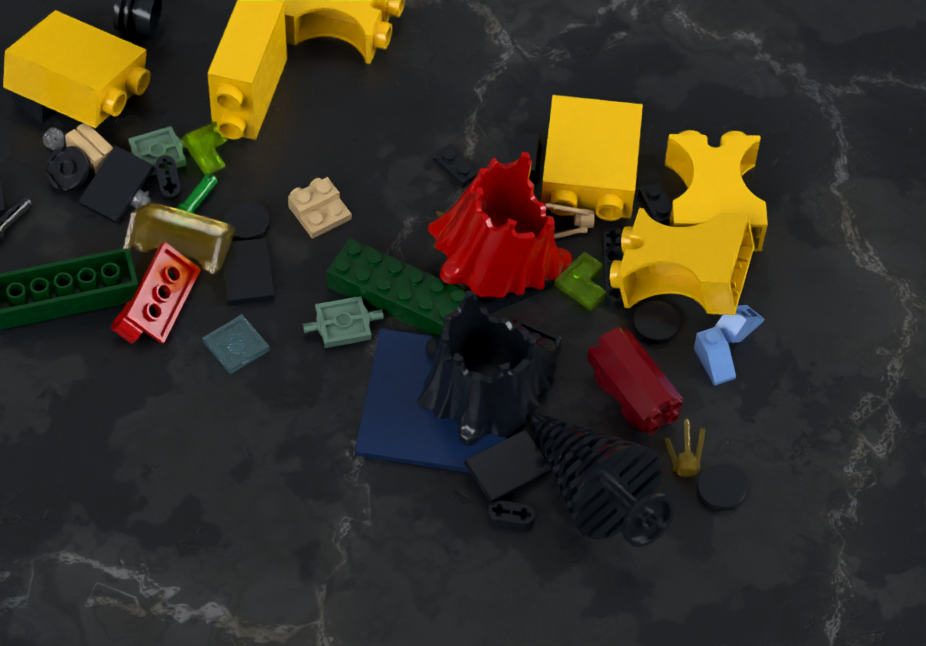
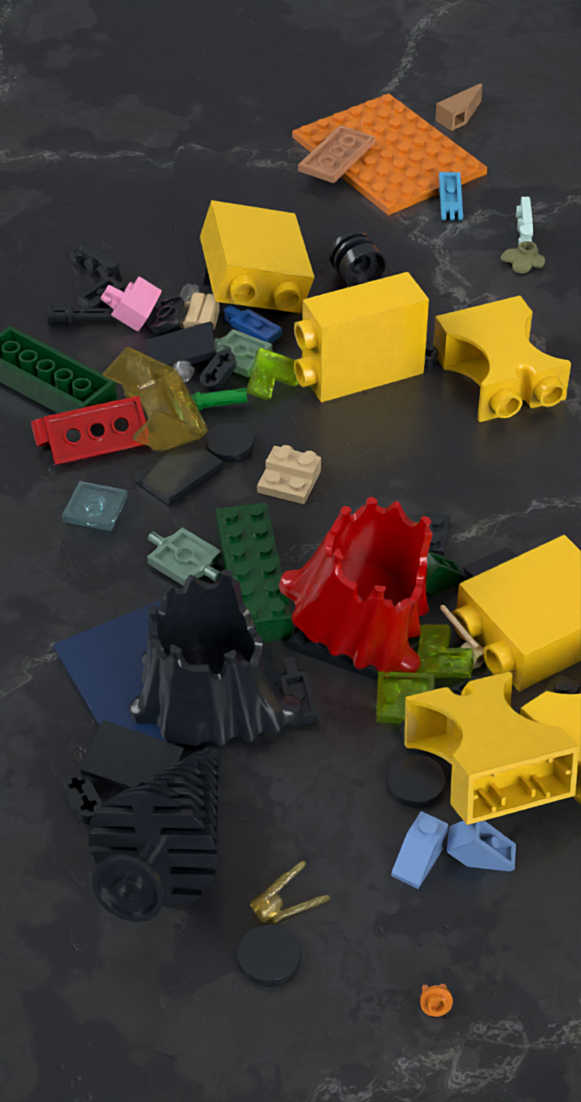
camera: 55 degrees right, 10 degrees down
(34, 179) = (134, 303): none -> bright pink hinge
(132, 123) = (252, 324): none -> blue hinge
(579, 238) = (439, 658): none -> clear neon green plate
(635, 380) = (315, 796): dark red brick -> none
(825, 423) = (436, 1000): none -> orange plate

